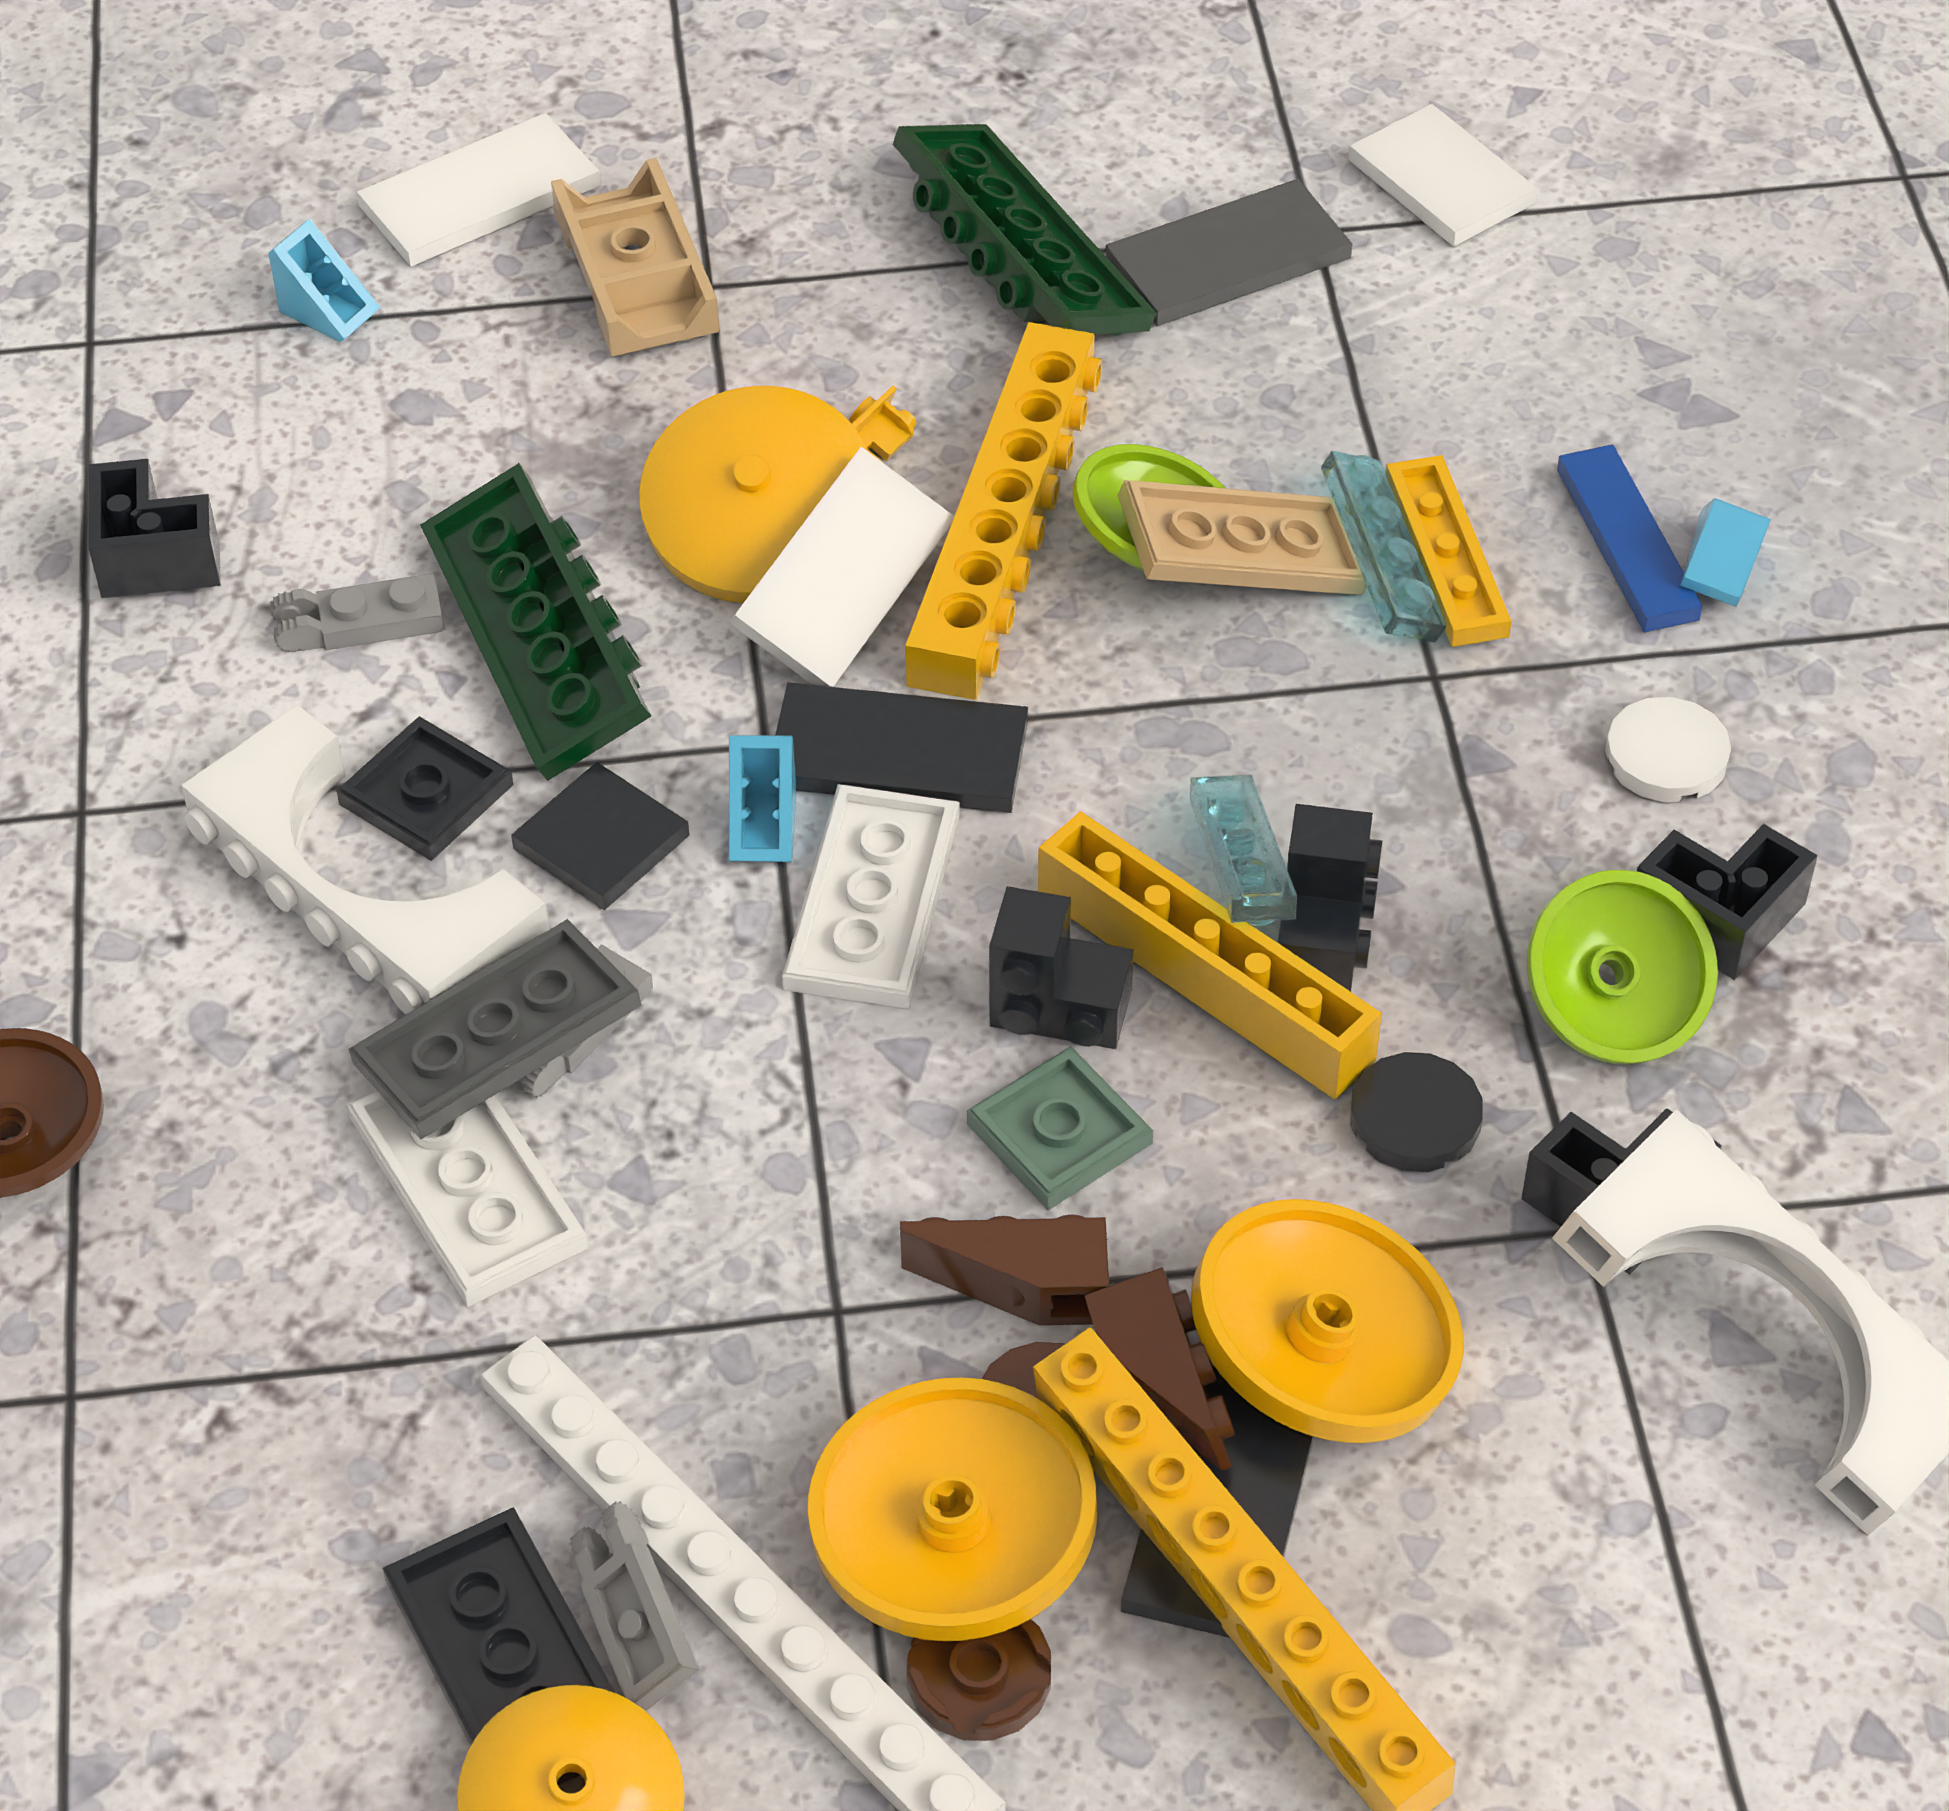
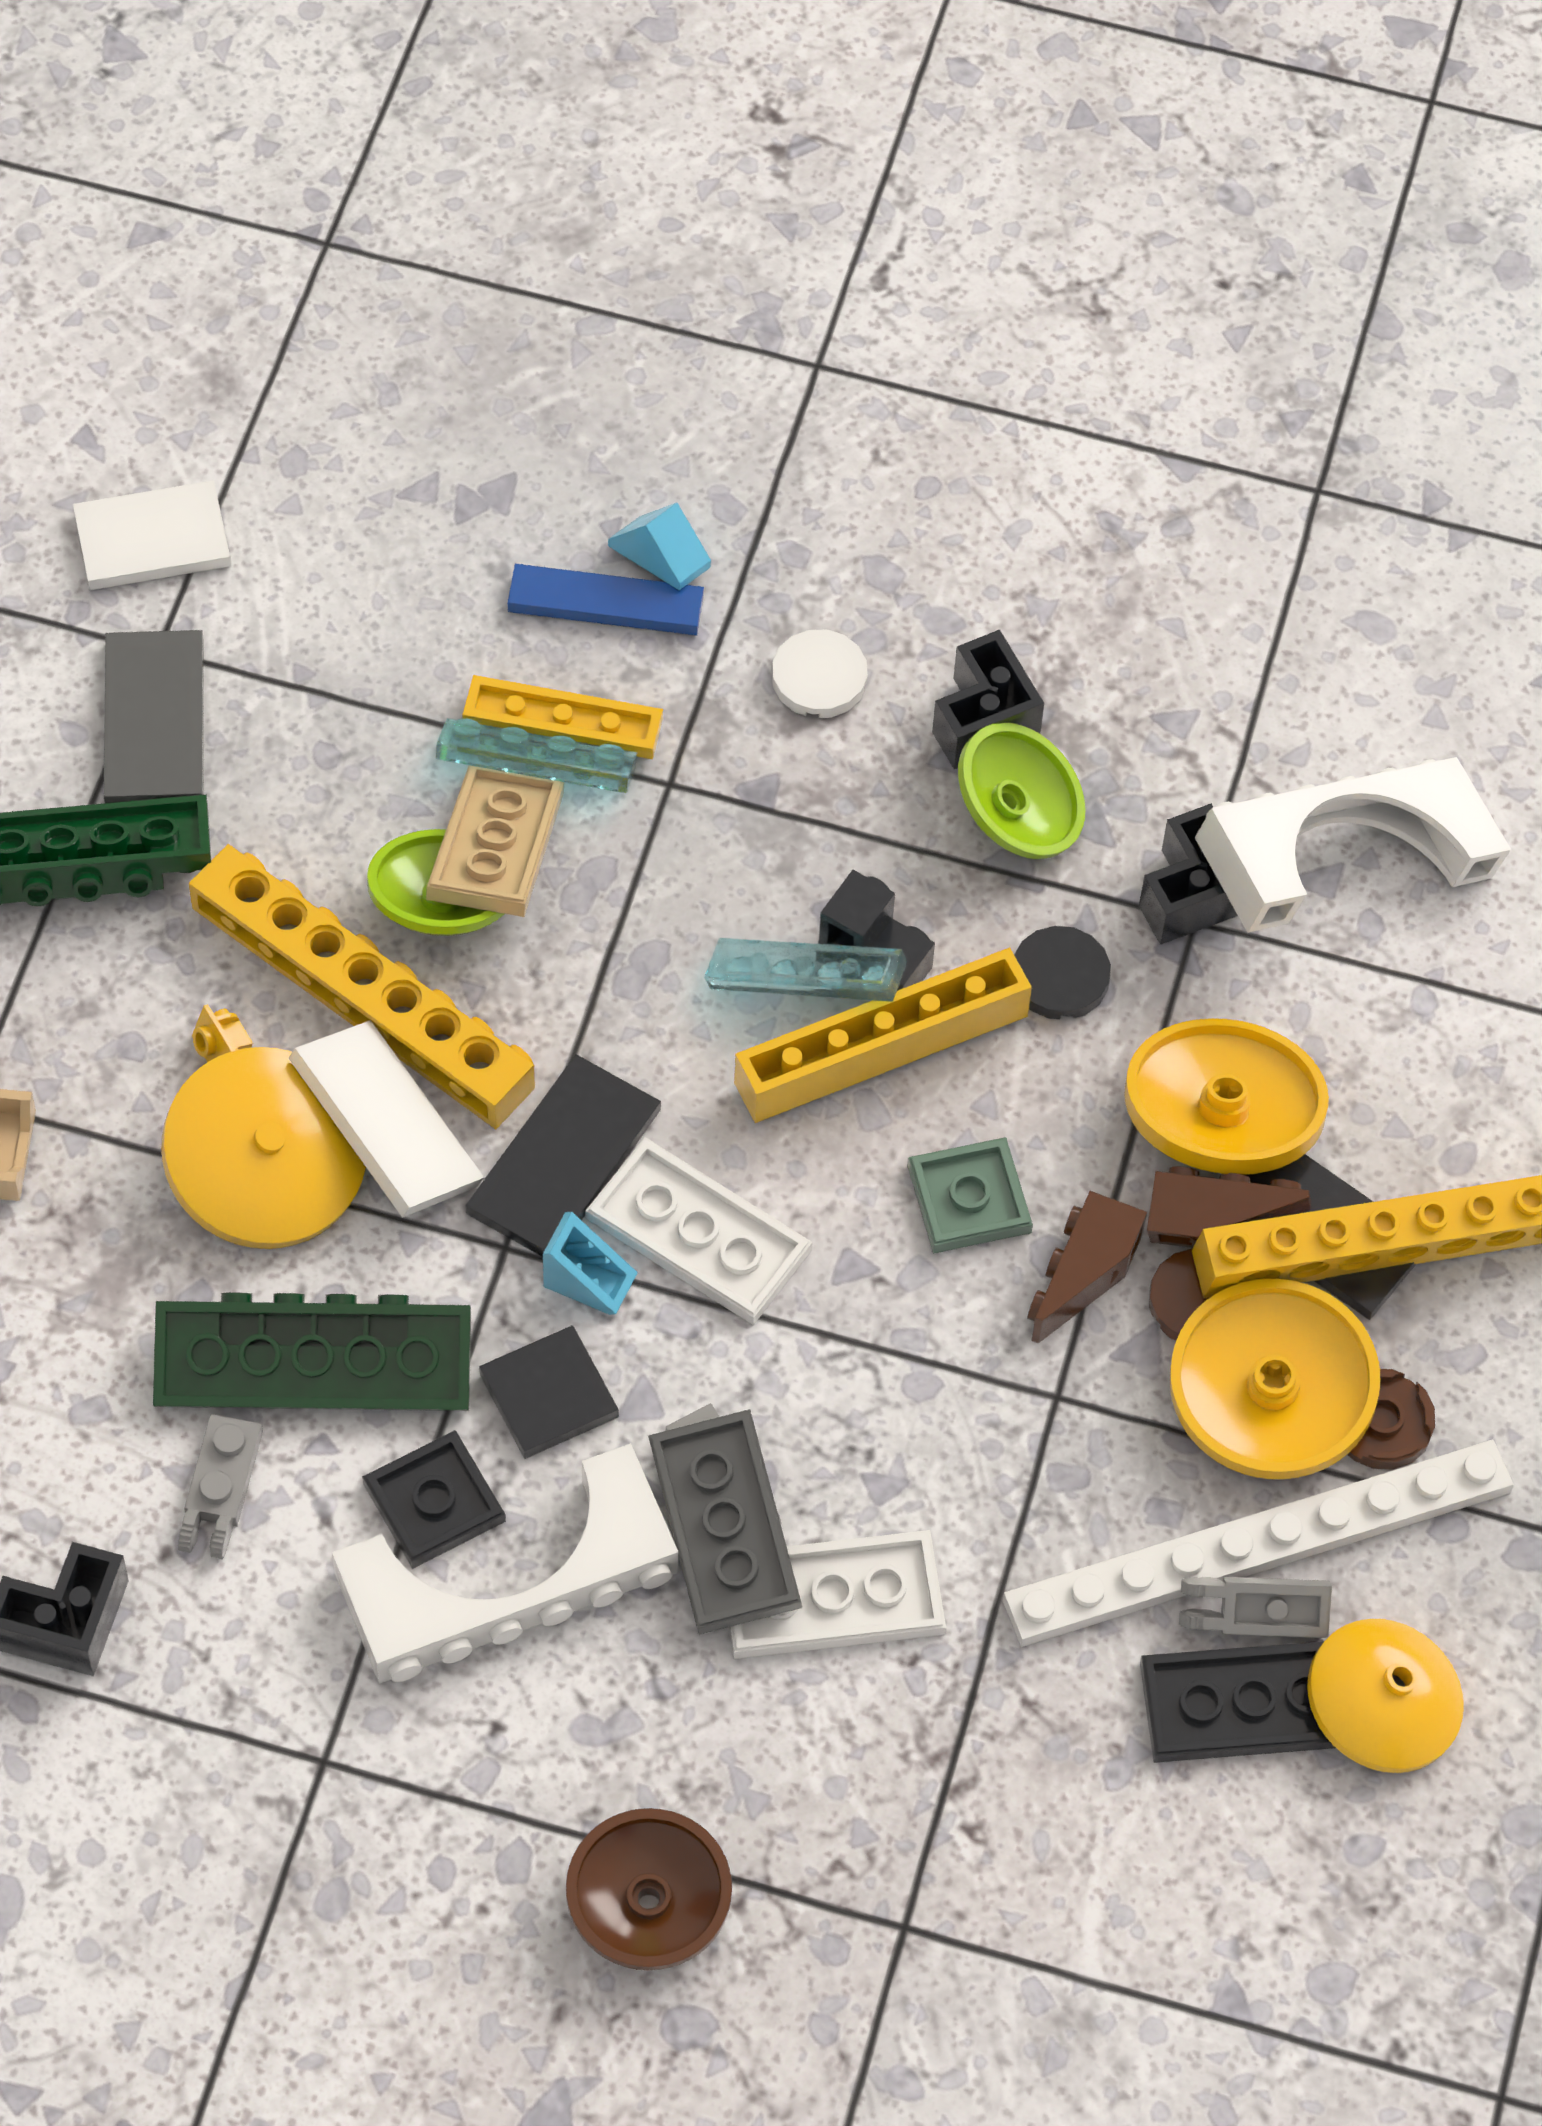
camera: 70 degrees left, 10 degrees up
(1053, 982) = (856, 1138): black brick -> none

